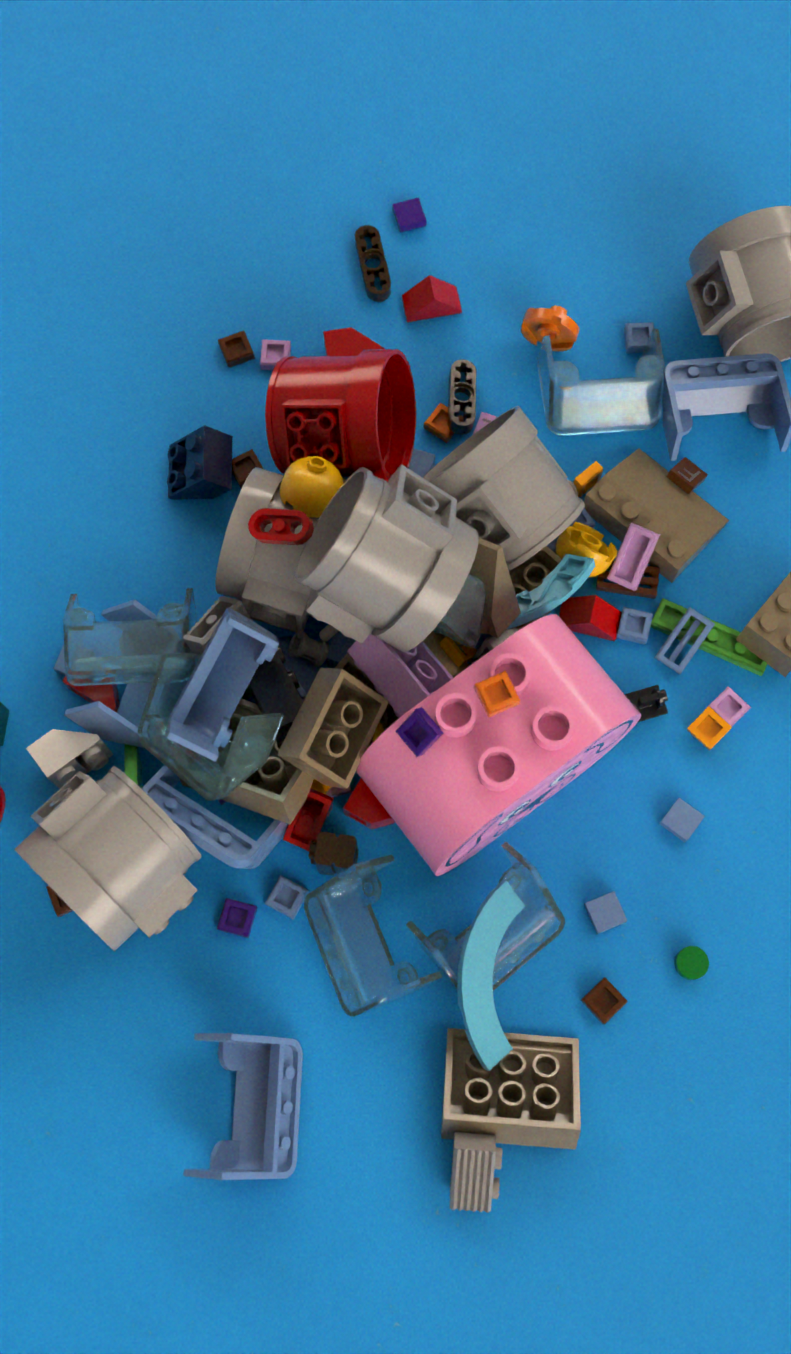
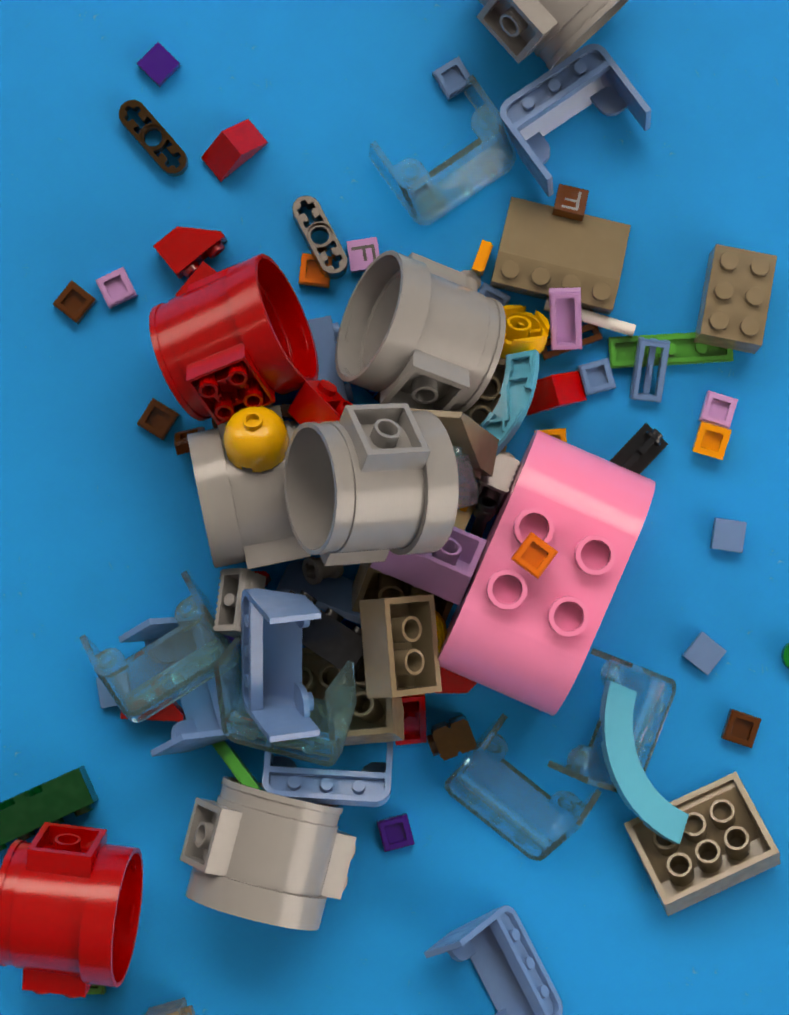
camera: 30 degrees left, 15 degrees up
(67, 752) = (166, 783): white slope -> none
(200, 465) = (115, 442): dark blue slope -> none
(283, 526) = (256, 497): red plate -> none
(287, 897) = (427, 791): medium blue tile -> none
(419, 731) = (484, 621): dark purple tile -> none
(473, 1172) = (708, 928): light grey brick -> none
(552, 322) = (369, 122): orange plate -> none
(666, 581) = (603, 321): none -> white bar

